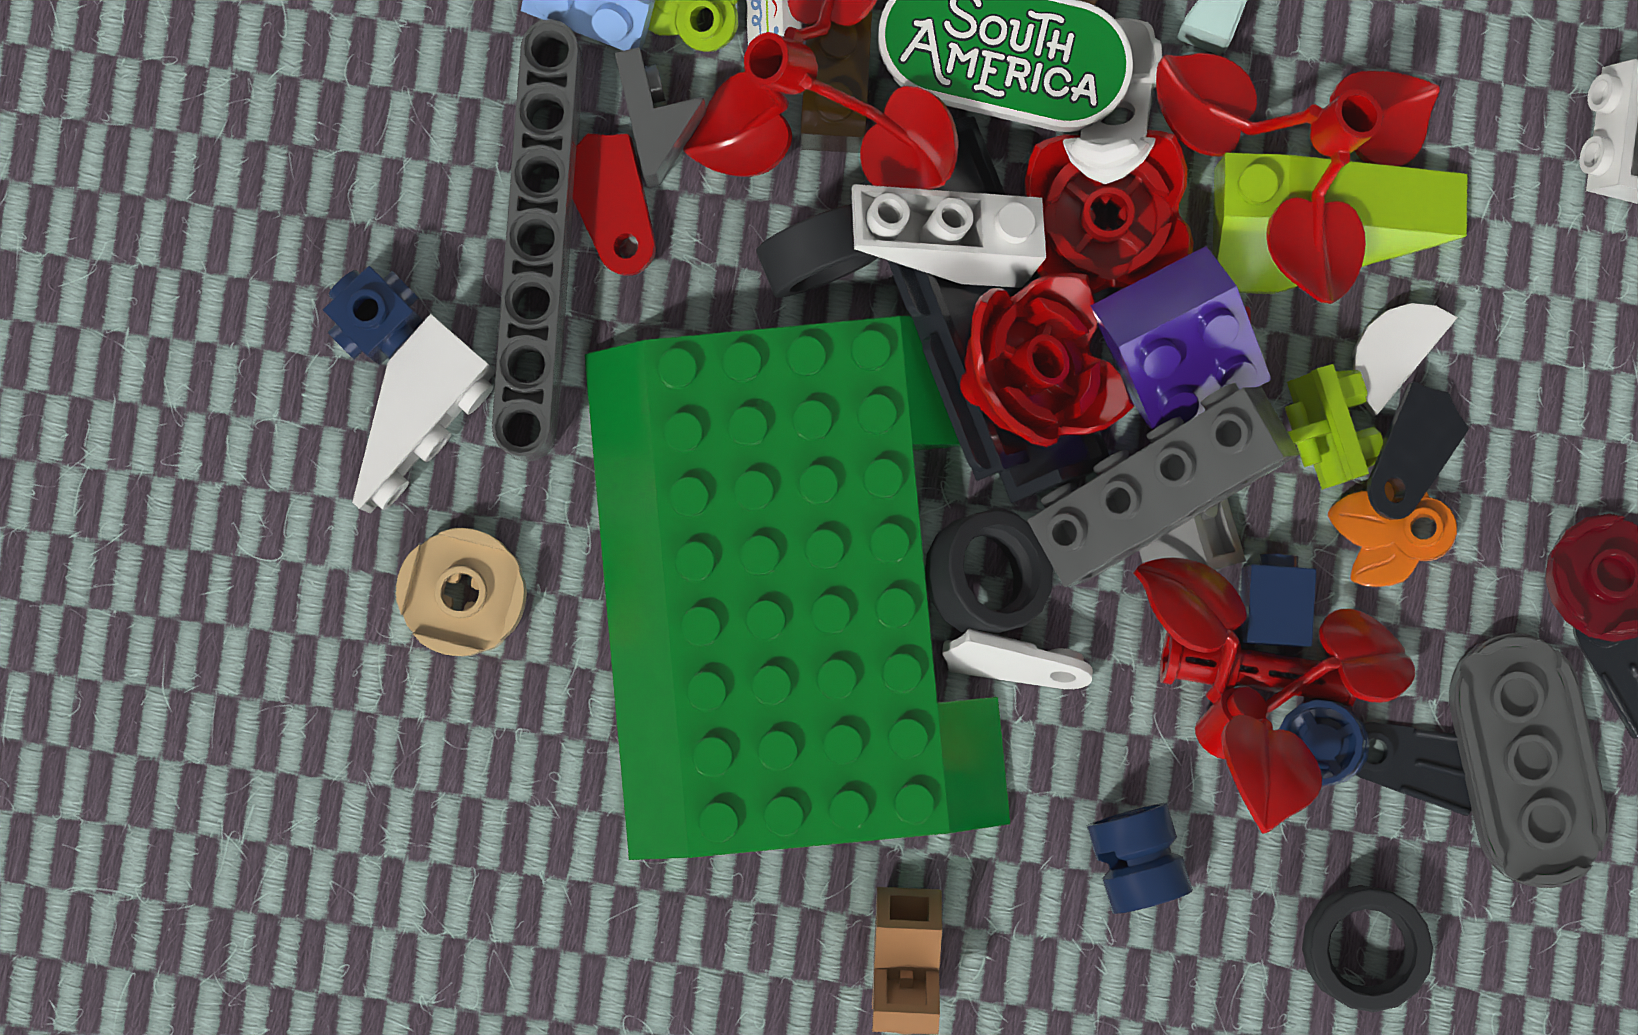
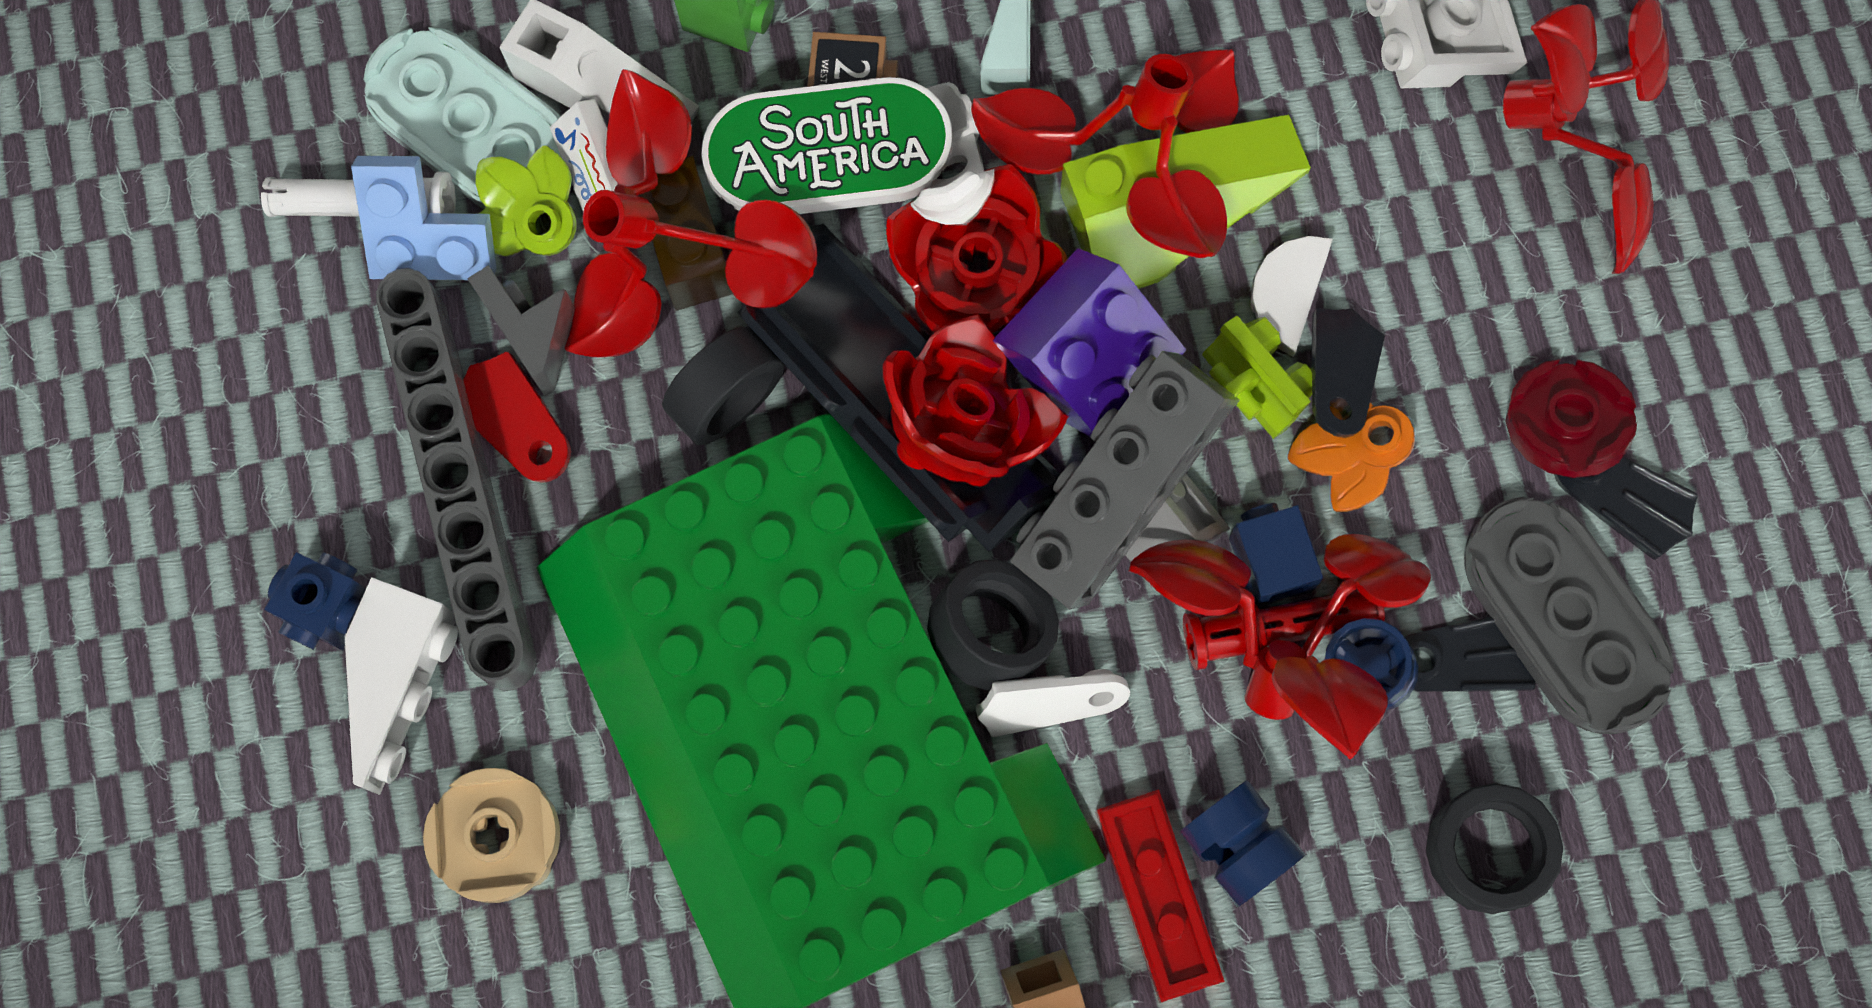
camera: 20 degrees left, 10 degrees down
(952, 233) = (838, 320): white slope -> none
(1046, 873) = (1159, 896): none -> red tile

